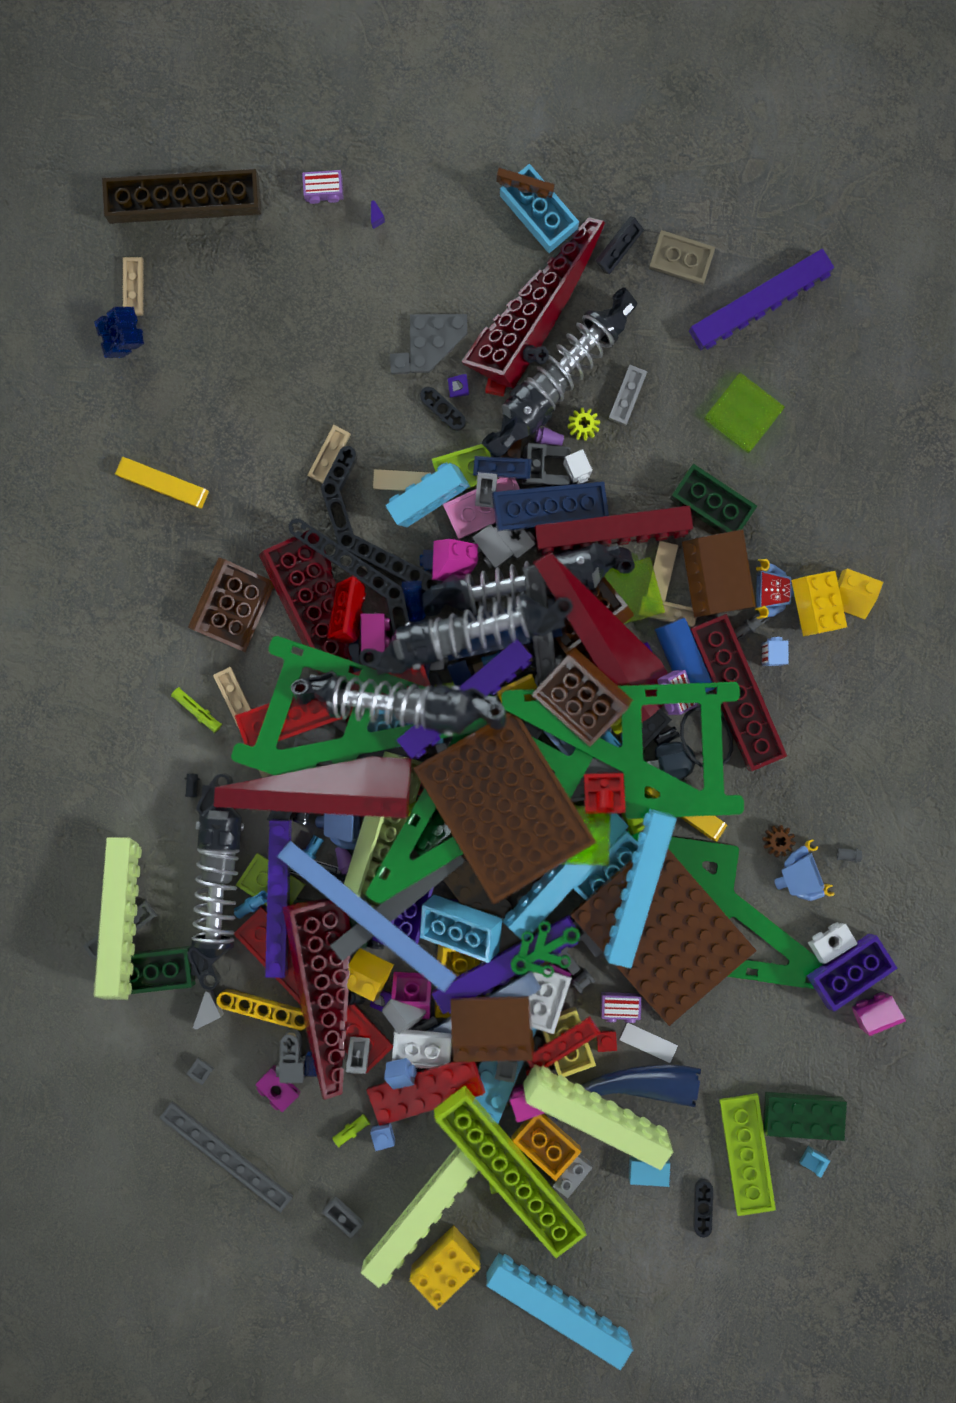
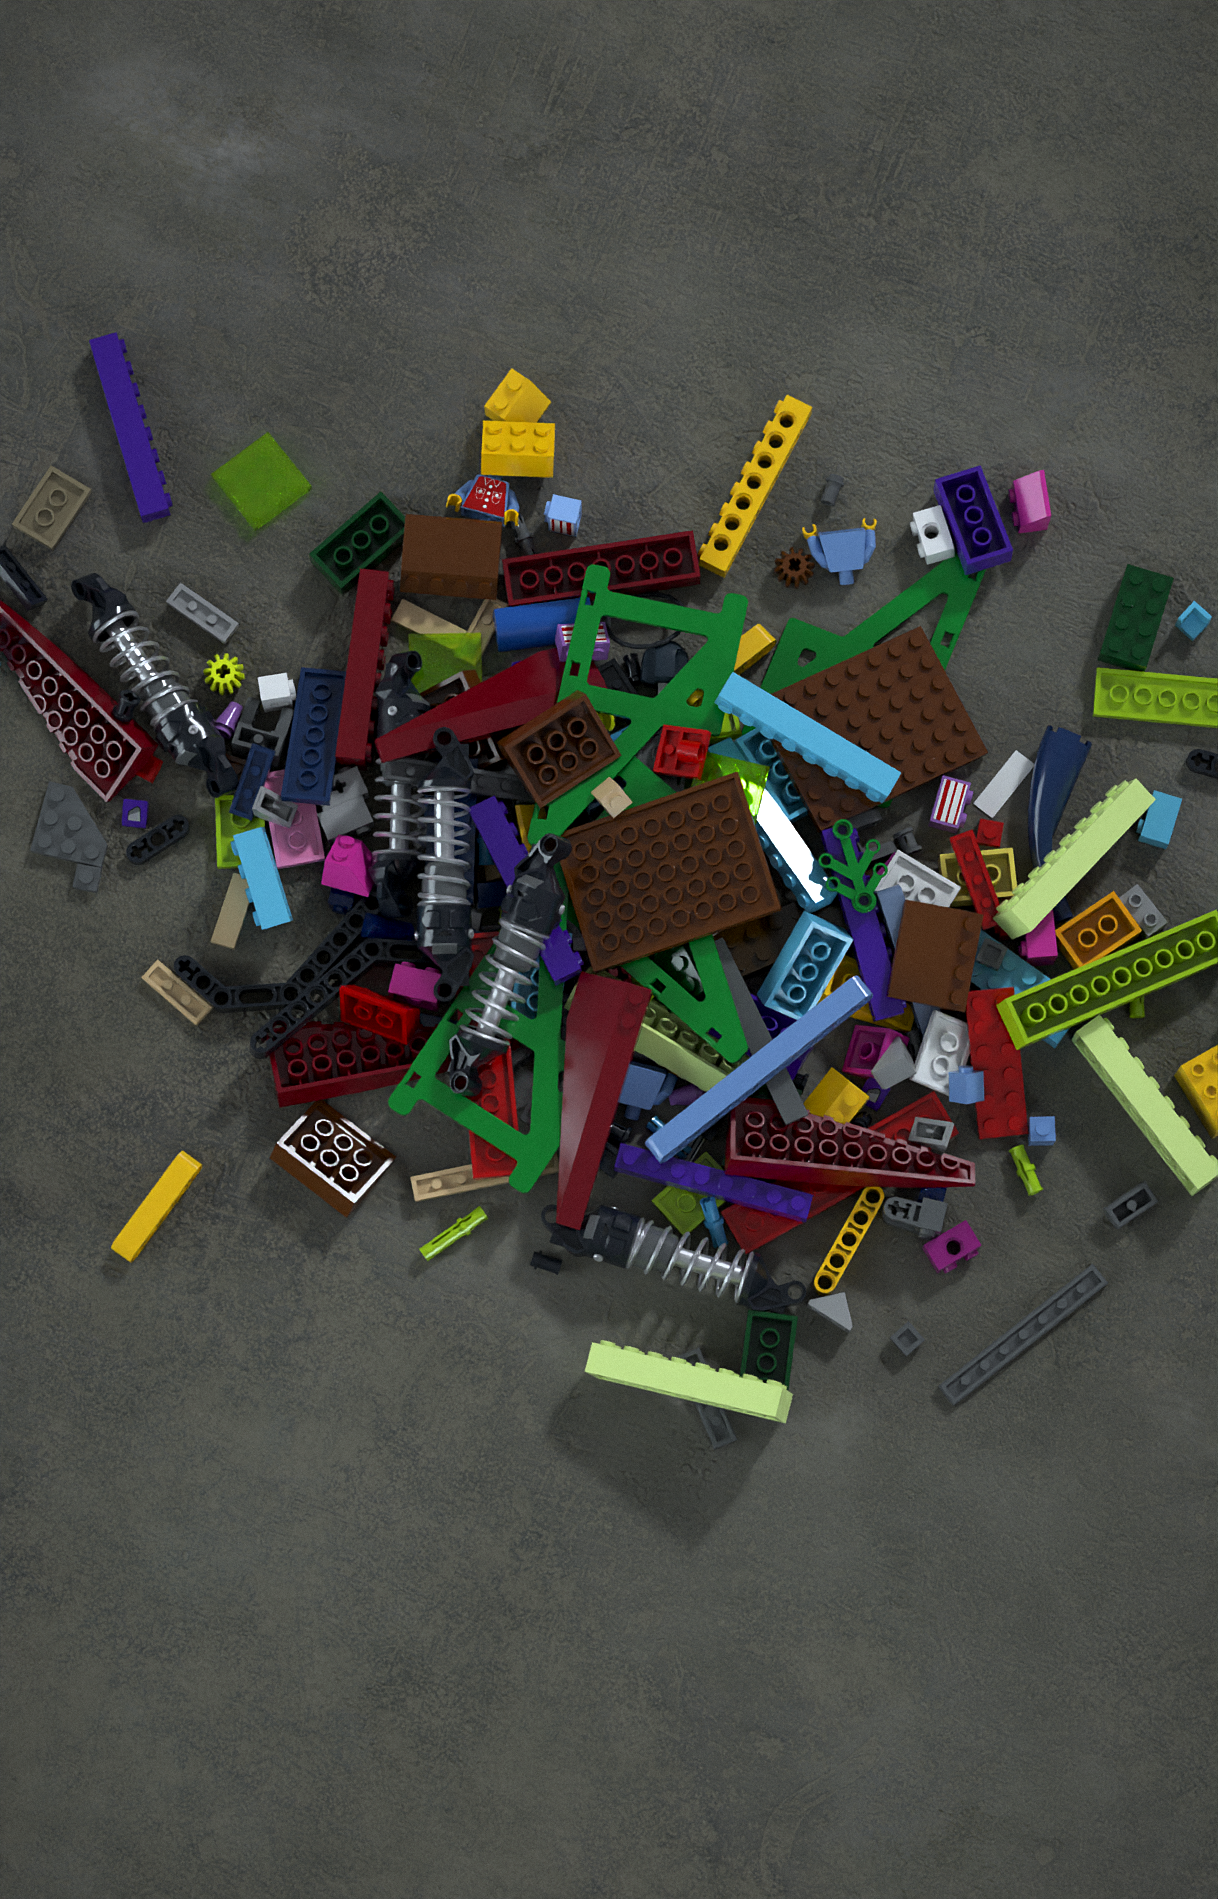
camera: 75 degrees left, 10 degrees down
(553, 747) = (611, 797): none -> tan brick
(905, 807) = (721, 561): none -> yellow brick

